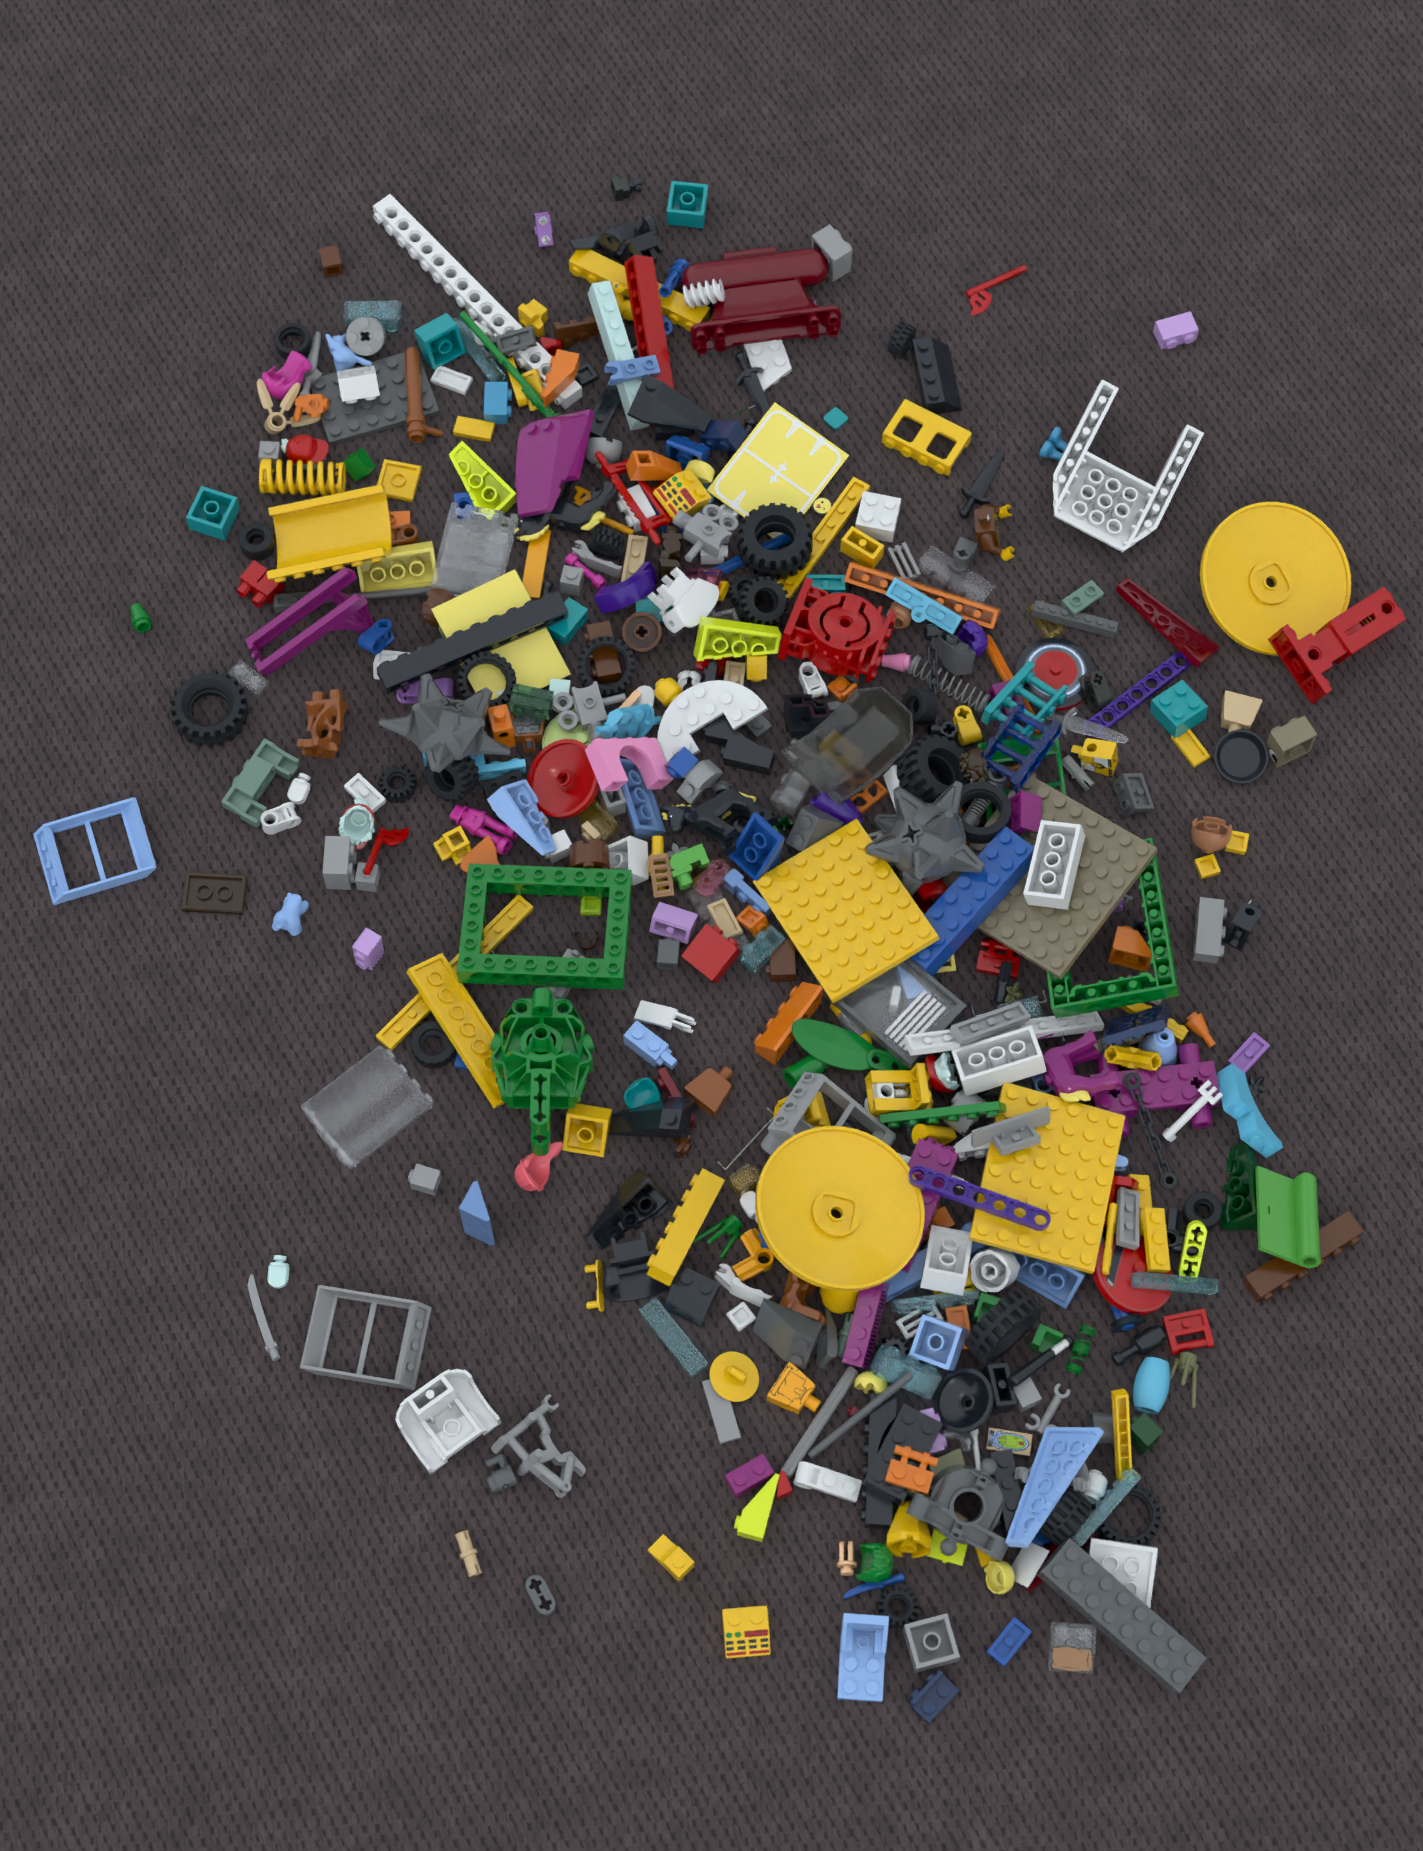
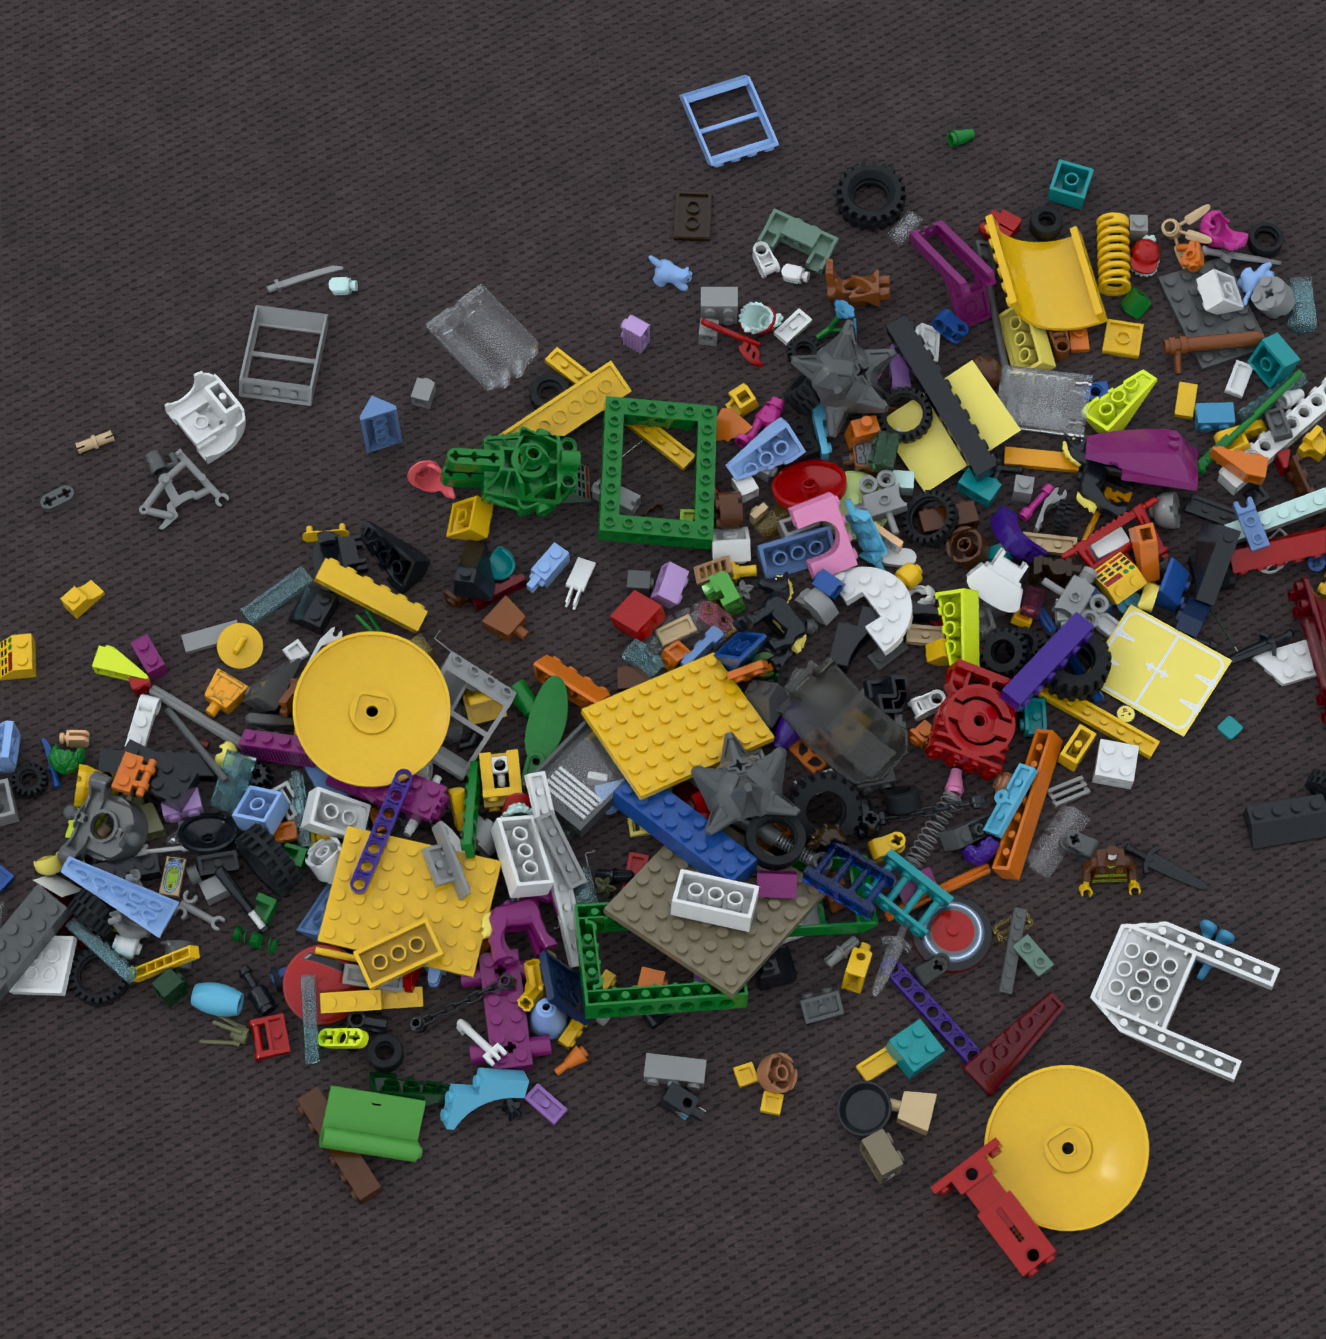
camera: 90 degrees right, 0 degrees up
(362, 730) = (843, 310): none -> dark azure plant
(786, 554) = (1047, 662): none -> dark purple brick
(788, 848) = (749, 671): none -> orange plate
(931, 425) = (1223, 814): yellow window -> none
(1011, 1414) = (193, 874): none -> dark grey beam
(1113, 1181) = (398, 954): none -> yellow brick

